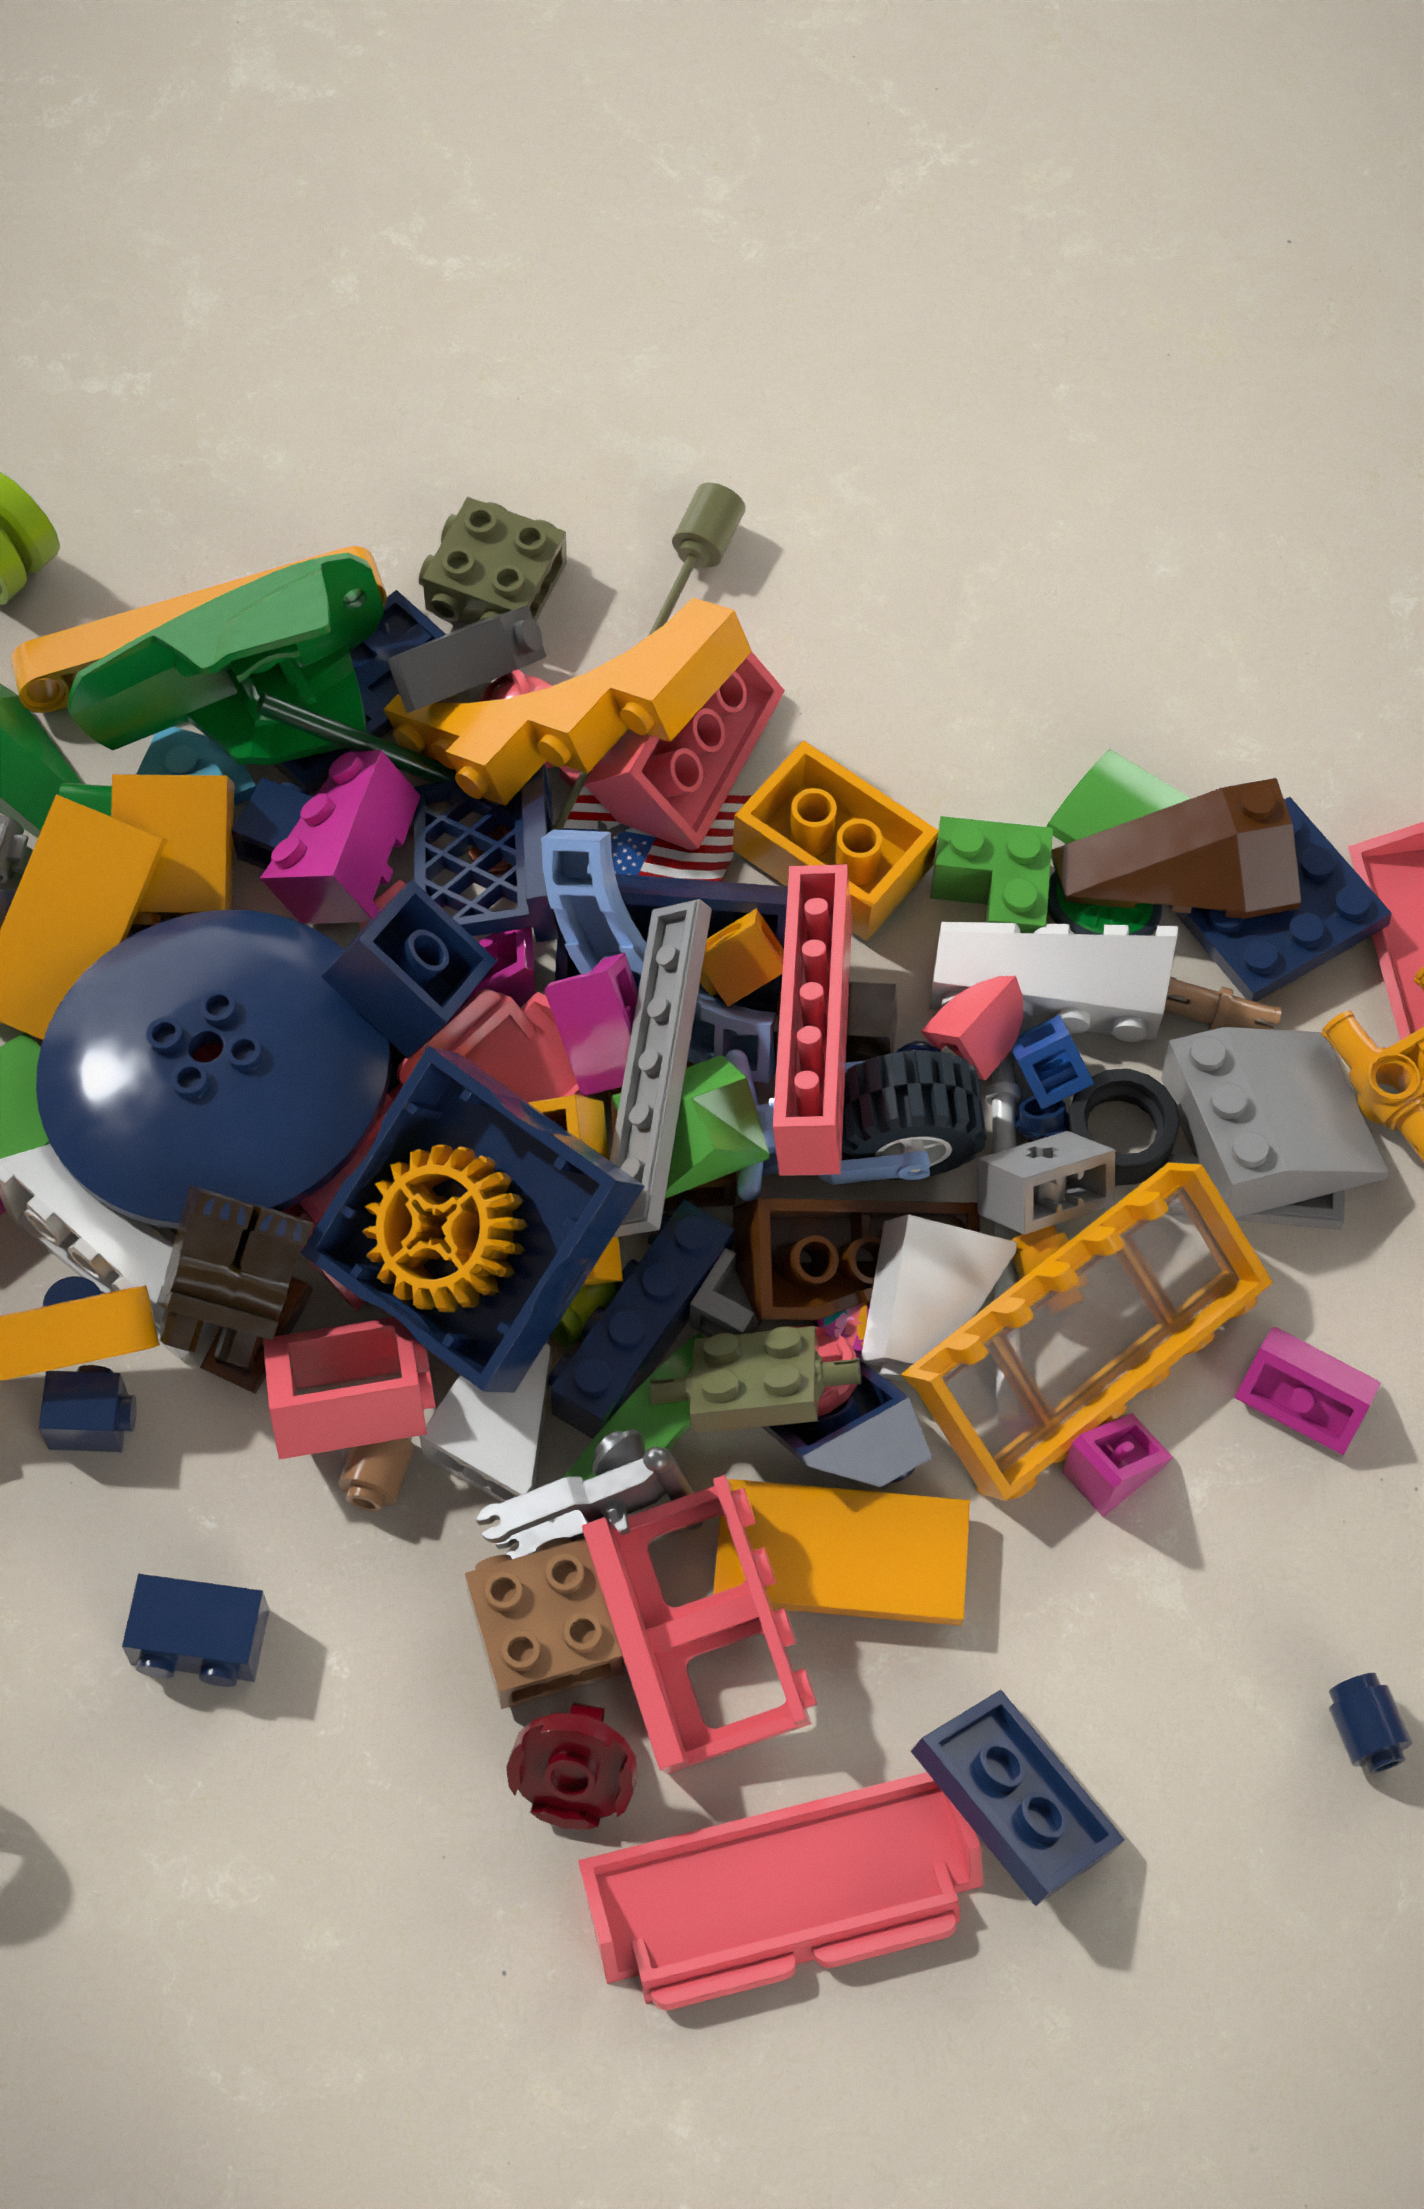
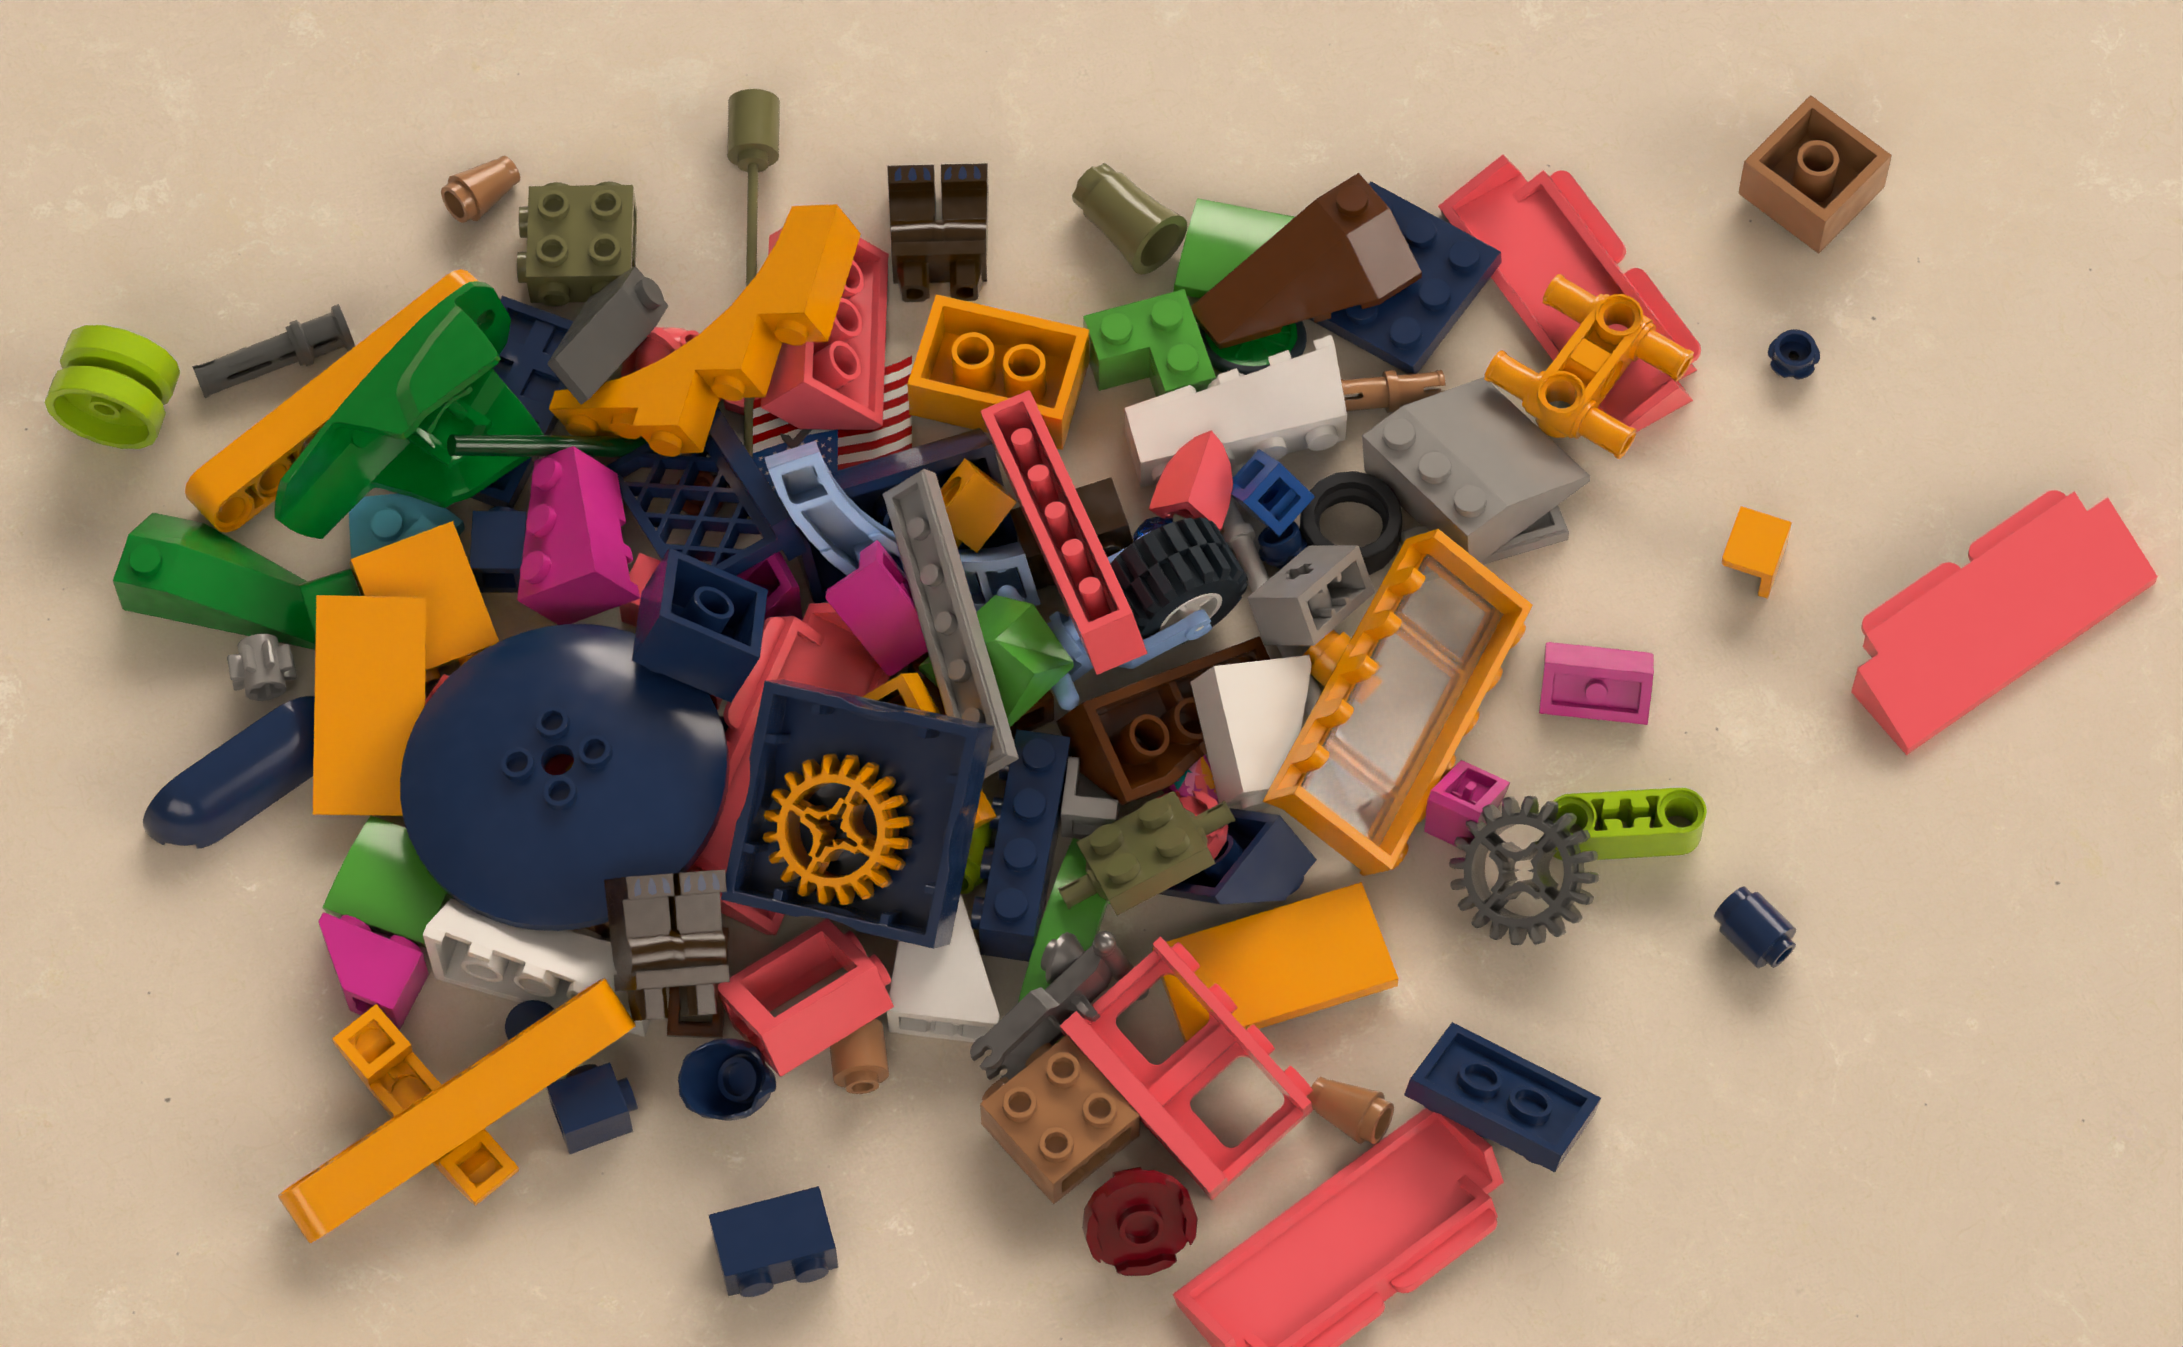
camera: 20 degrees left, 0 degrees up
(187, 564) = (298, 344): none -> dark grey pin
(226, 1438) = (725, 1080): none -> dark blue hair
(426, 485) = (479, 189): none -> medium nougat cone
(842, 687) = (941, 249): none -> dark brown hips
(855, 1740) = (1352, 1109): none -> medium nougat cone
(1033, 743) = (1129, 218): none -> olive plant
(1157, 1582) = (1540, 886): none -> dark grey gear
(1290, 1537) = (1636, 809): none -> lime beam

